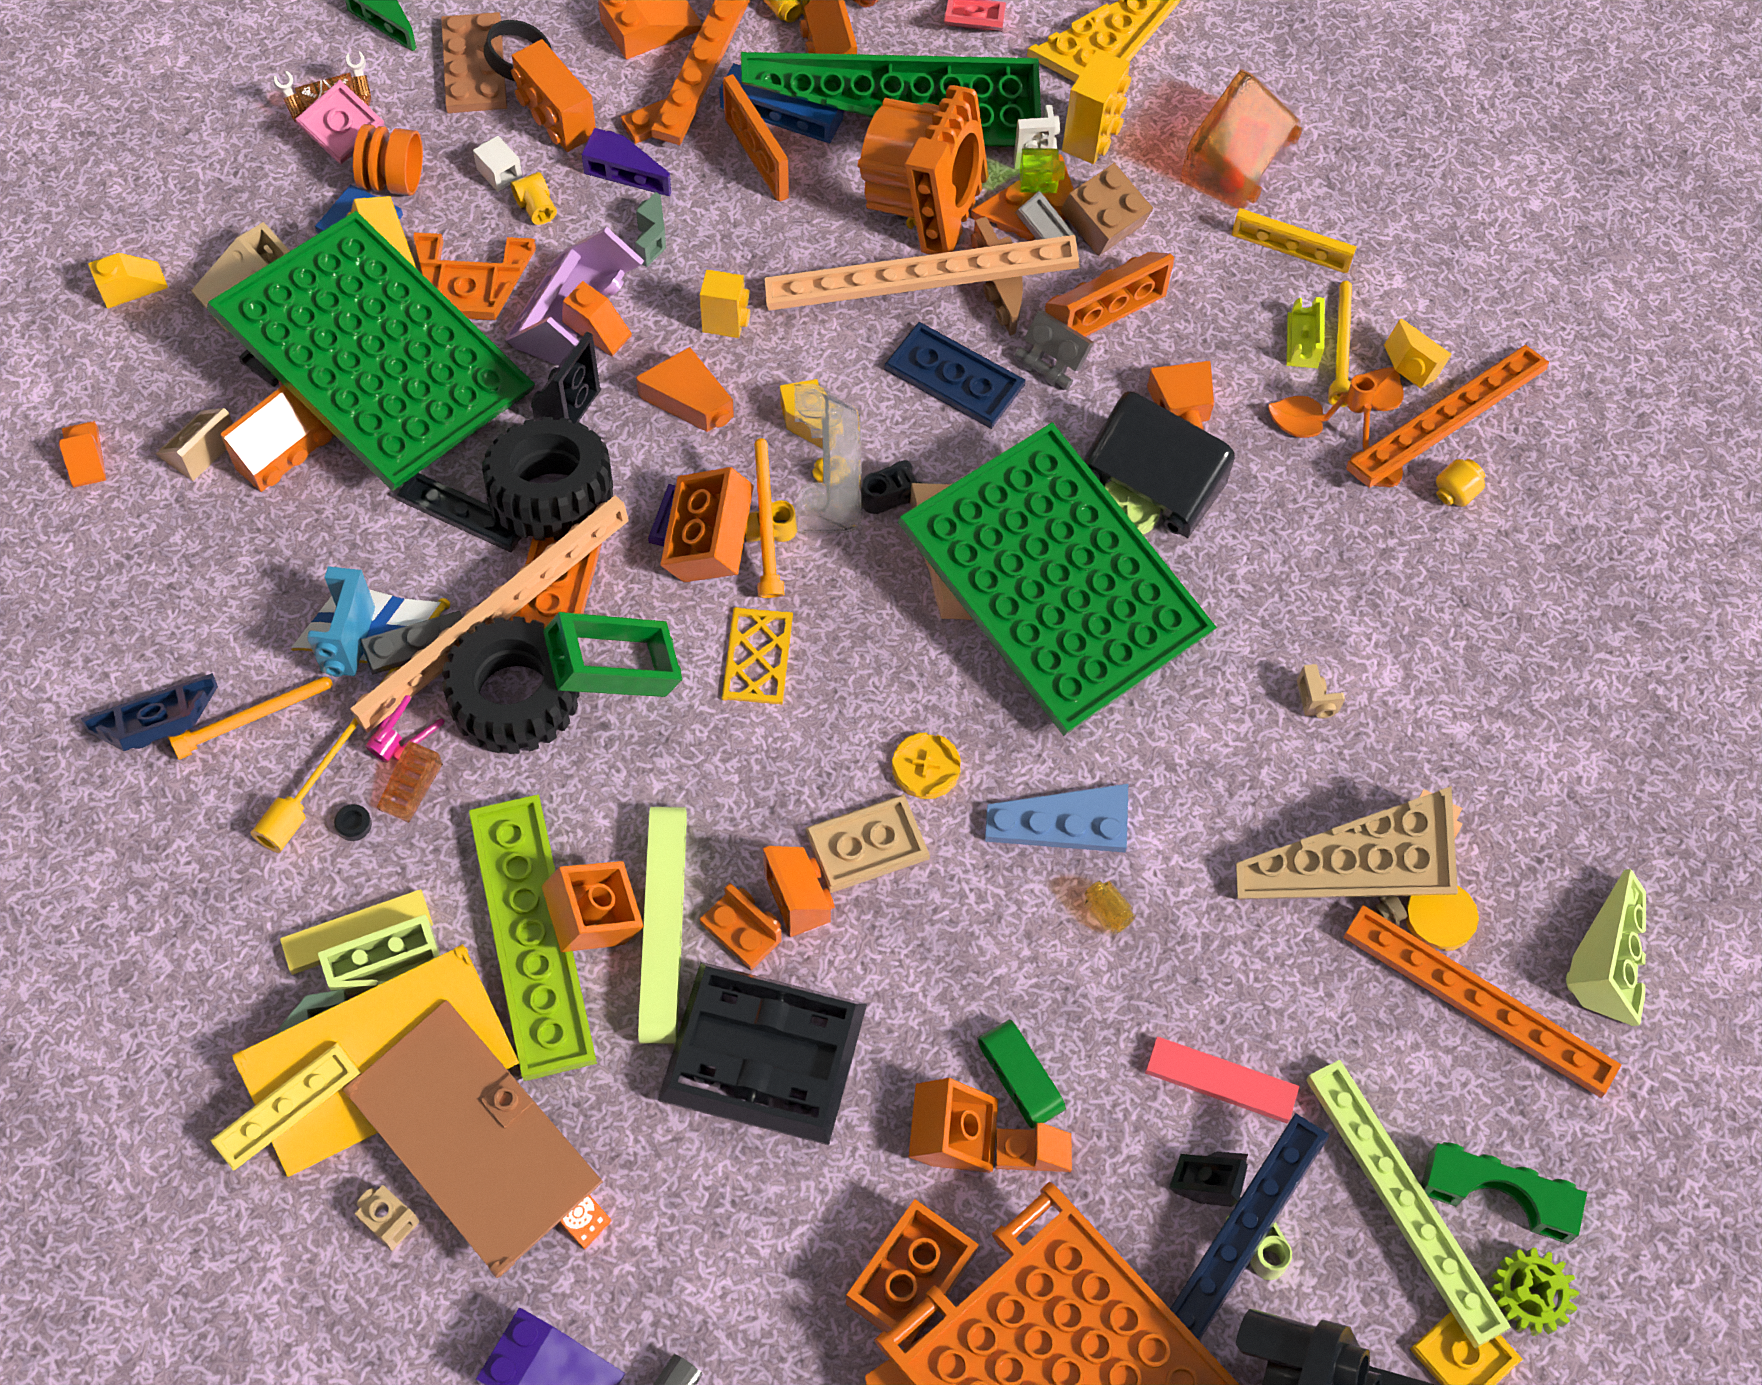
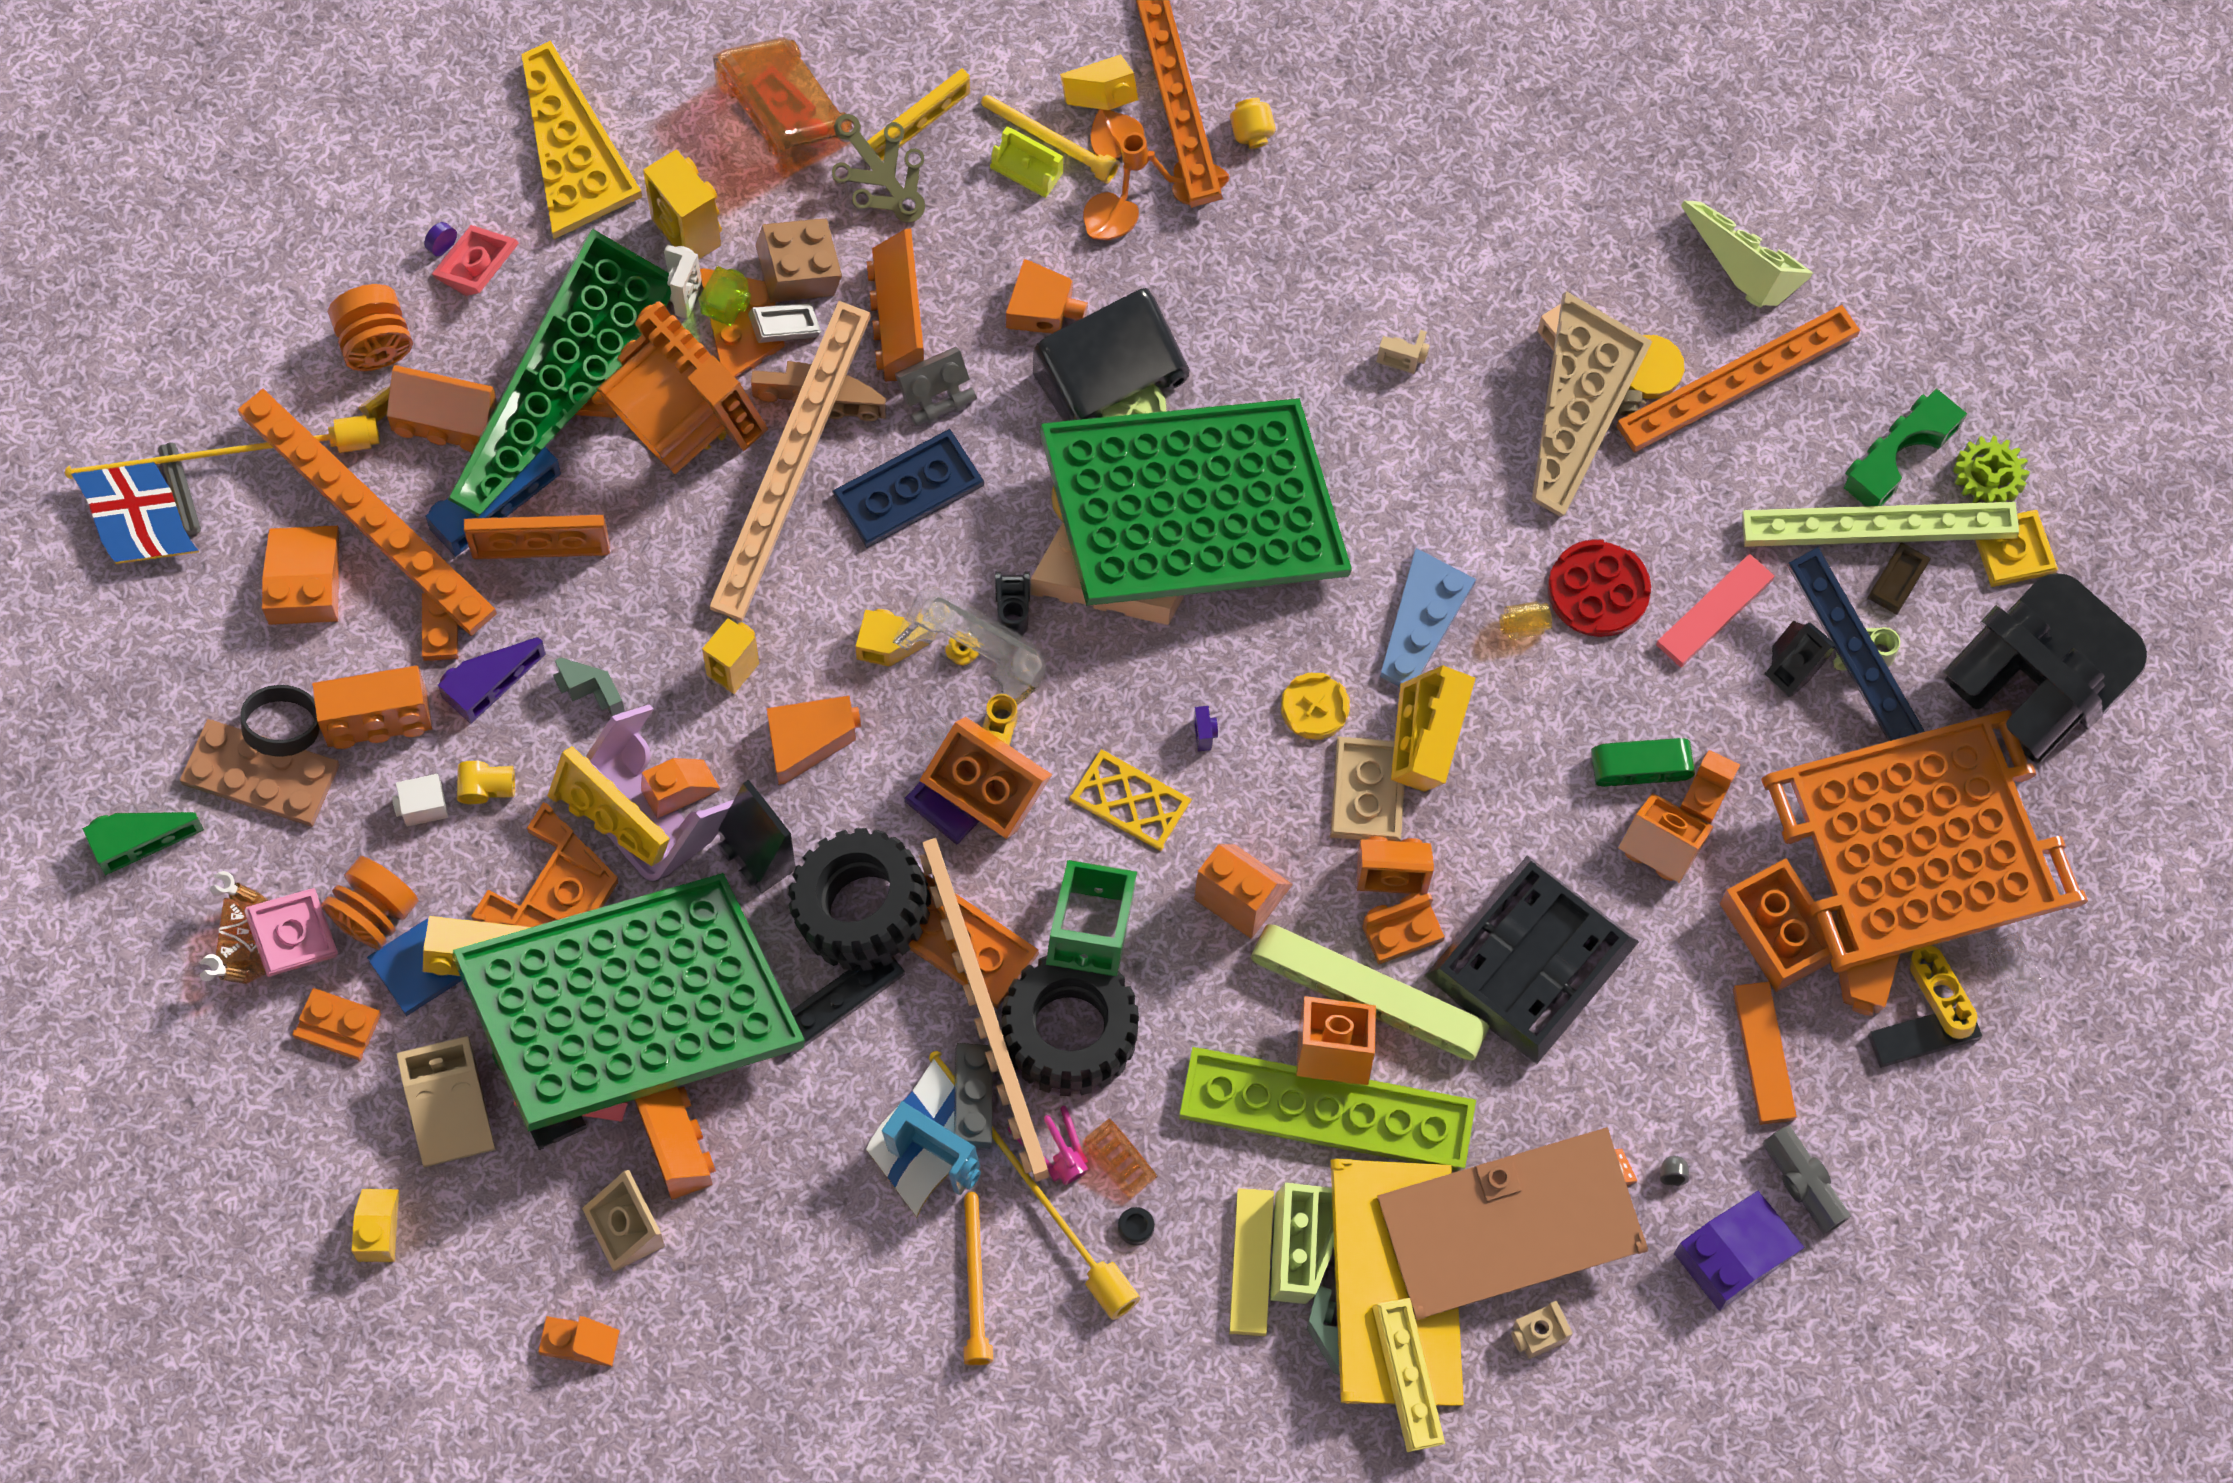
camera: 65 degrees left, 5 degrees up
(153, 716) = (940, 1368): dark blue wing -> none
(288, 191) = (336, 1024): none -> orange plate
(538, 283) = (598, 798): none -> yellow wing
(608, 1278) = (1674, 1171): none -> dark grey hinge
(710, 766) = (1239, 888): none -> orange slope
(770, 583) = (1065, 753): light orange piece -> none
(773, 1319) = (1764, 1053): none -> orange tile
(851, 680) = (1205, 728): none -> dark purple plate
(945, 862) = (1429, 726): none -> yellow wedge
(1183, 963) = (1599, 588): none -> red tile
(1226, 232) = (882, 173): none -> olive plant
(1361, 1247) = (1899, 578): none -> dark brown tile

